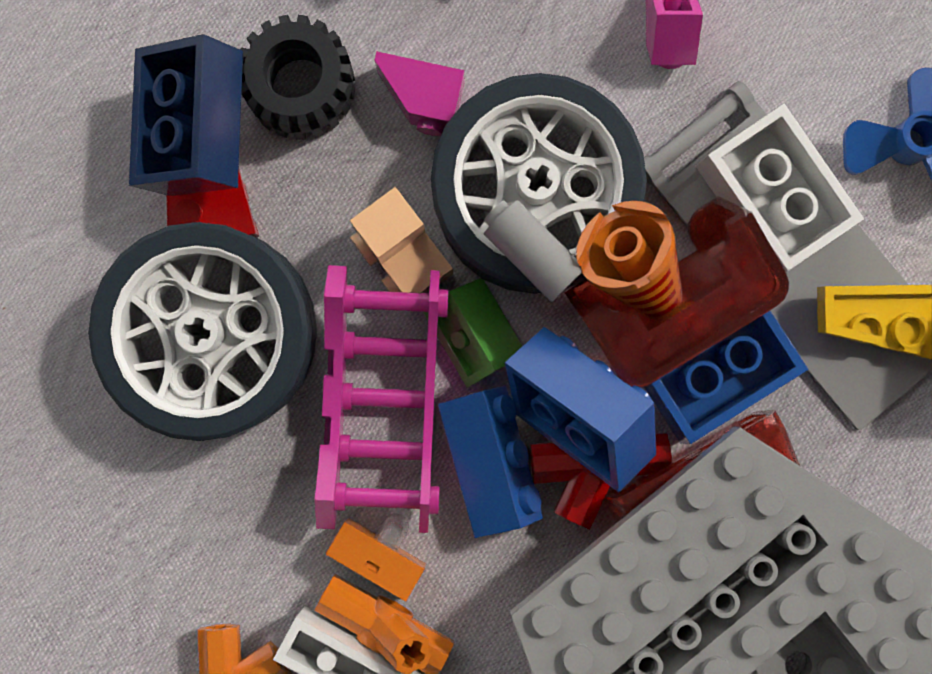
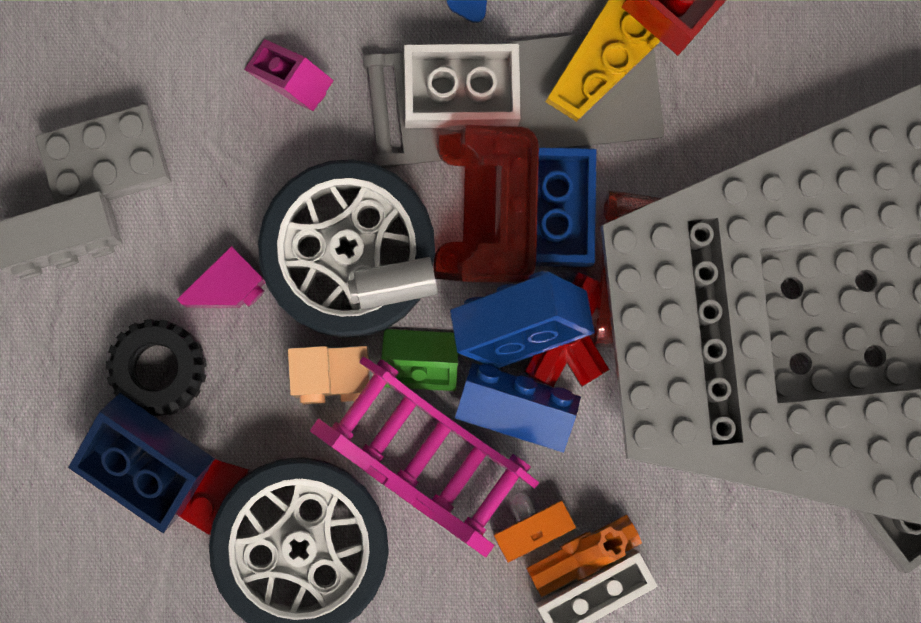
camera: 60 degrees left, 0 degrees up
(633, 258) = (444, 221): orange cone -> none

